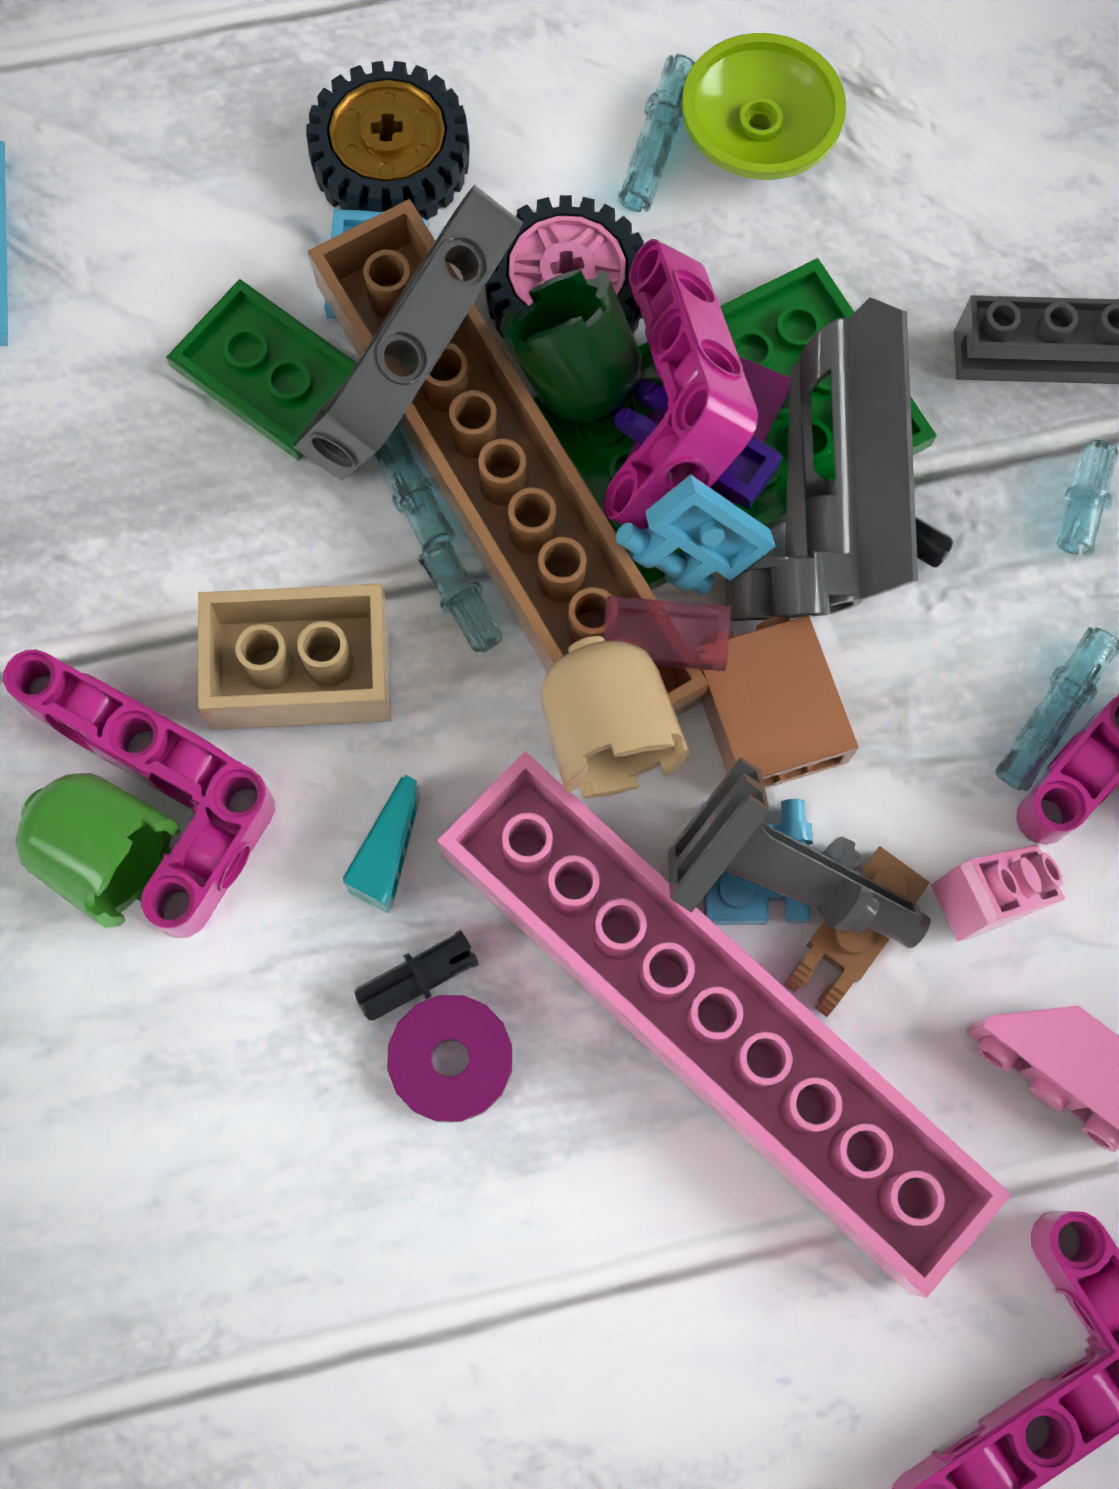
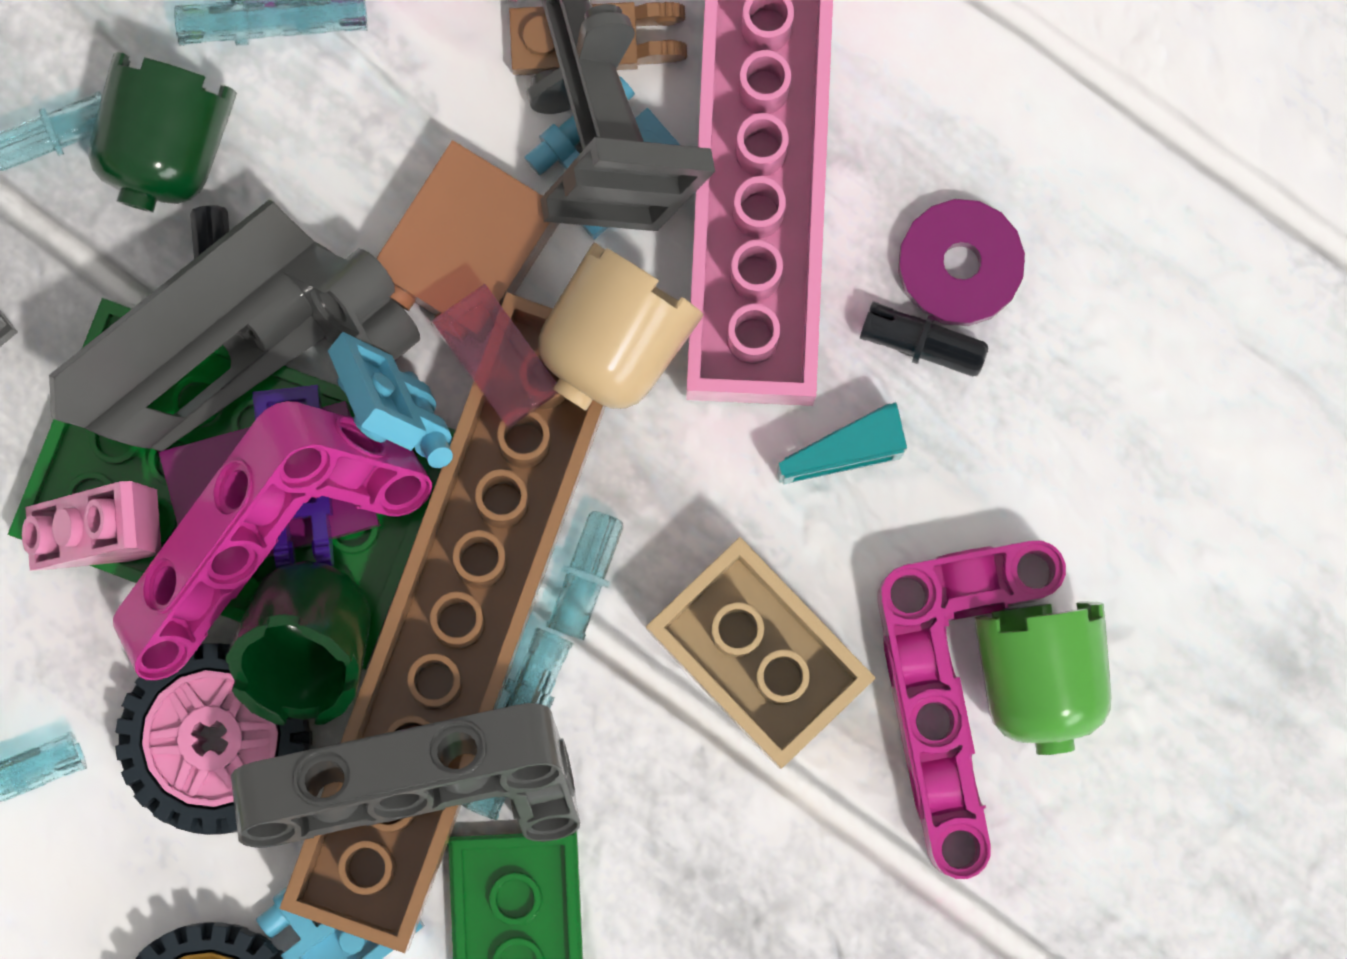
camera: 125 degrees left, 10 degrees up
(770, 295) = (93, 527): none -> bright pink slope
(1032, 553) = (157, 132): none -> dark green cylinder

